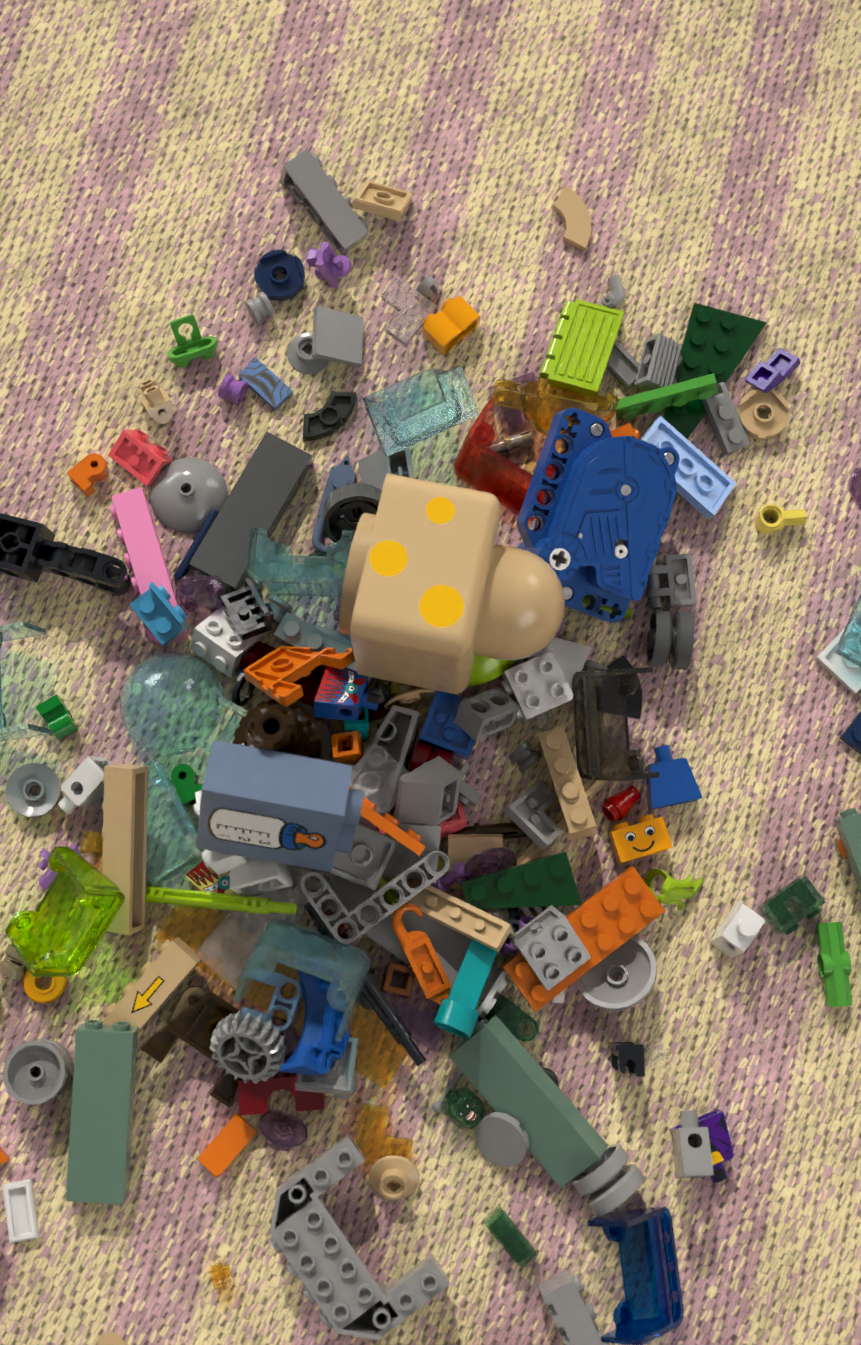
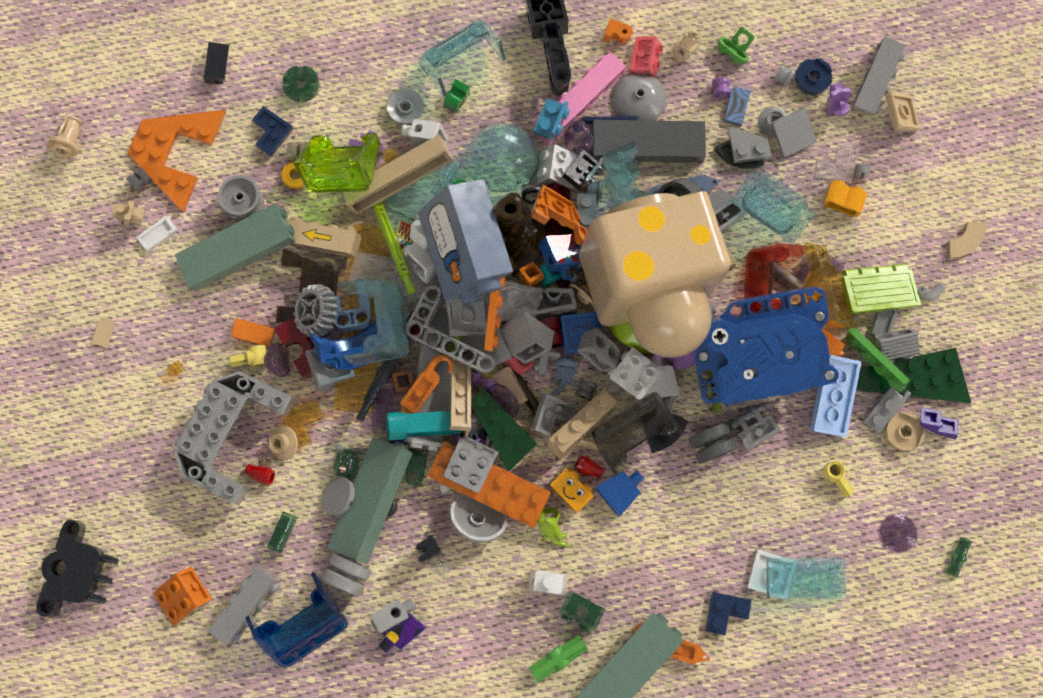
camera: 65 degrees right, 0 degrees up
(261, 1160) = (253, 357): none -> light yellow axle
(324, 399) = (748, 146): none -> light grey wing
(419, 1228) = (261, 474): none -> red cone
(487, 769) = (565, 371): none -> sand blue piece

